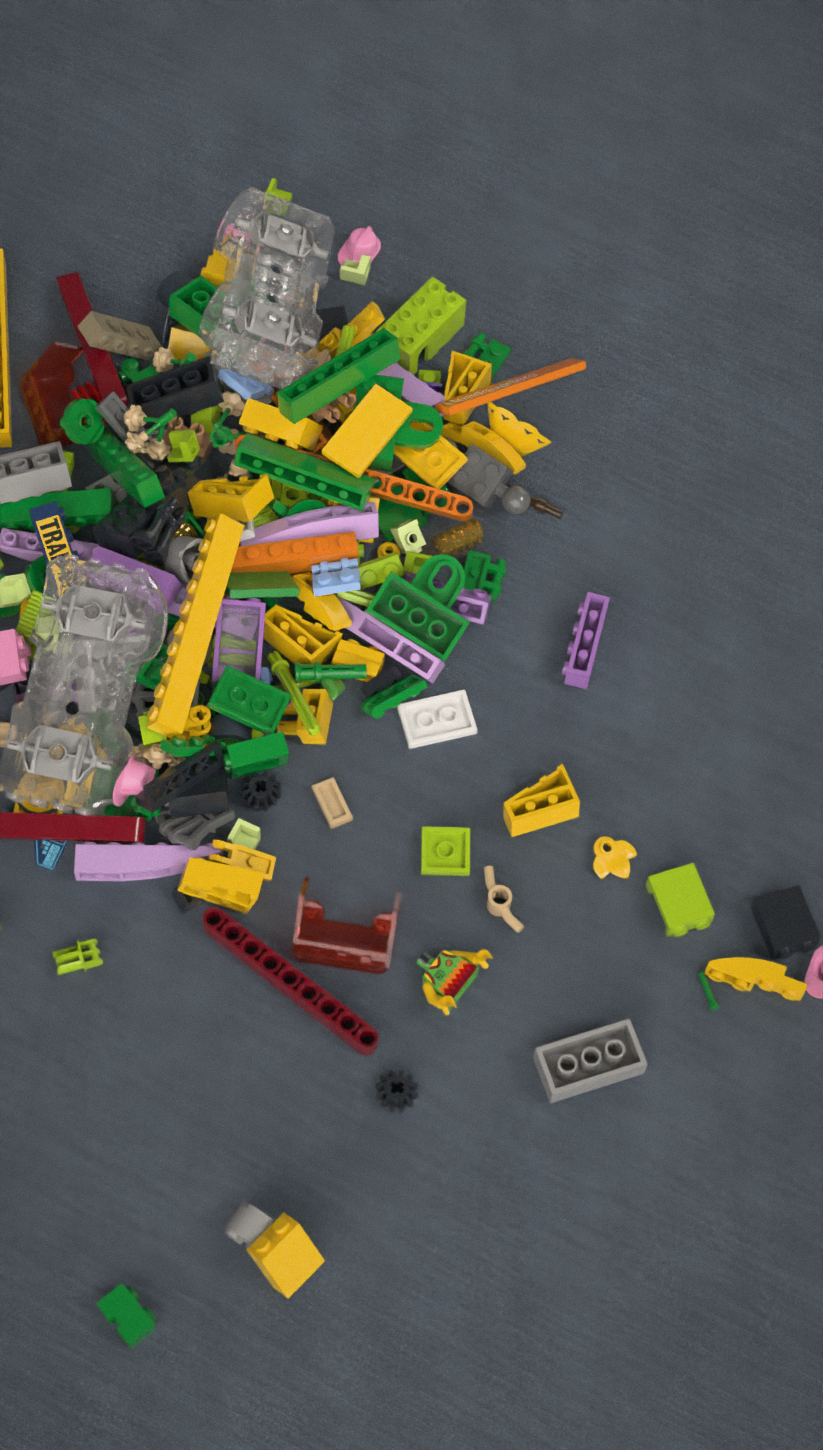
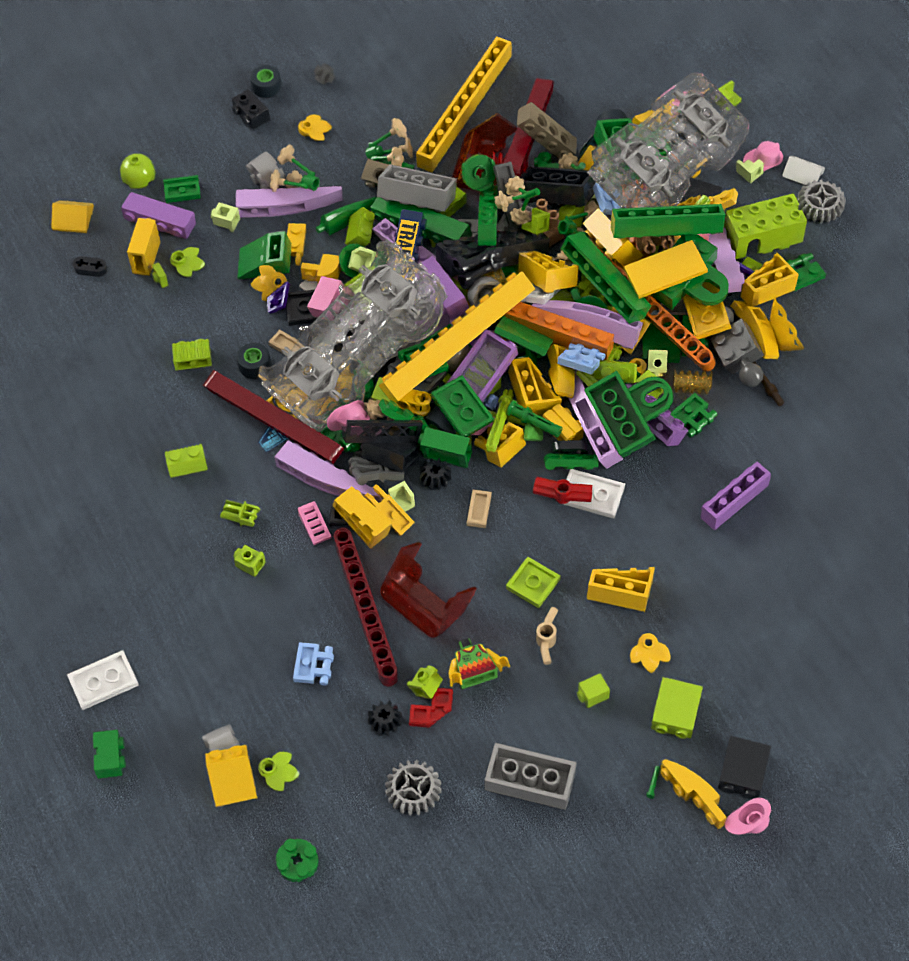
camera: 40 degrees right, 5 degrees down
(57, 1237) = (102, 680): none -> white tile
(132, 1010) = (253, 563): none -> lime brick
(163, 928) = (309, 512): none -> bright pink slope
(271, 1082) = (306, 664): none -> light blue plate
(327, 1217) = (280, 772): none -> lime plate
(412, 245) = (802, 170): none -> white panel
(413, 1026) = (425, 682): none -> lime brick
(424, 729) = (552, 489): none -> red piece
(425, 1307) = (303, 869): none -> green plate
(435, 1060) = (428, 715): none -> red tile
(455, 263) = (821, 201): none -> light grey gear
(470, 1141) = (400, 797): none -> light grey gear
(510, 386) = (800, 295): orange tile -> none
(587, 931) = (593, 690): none -> lime brick

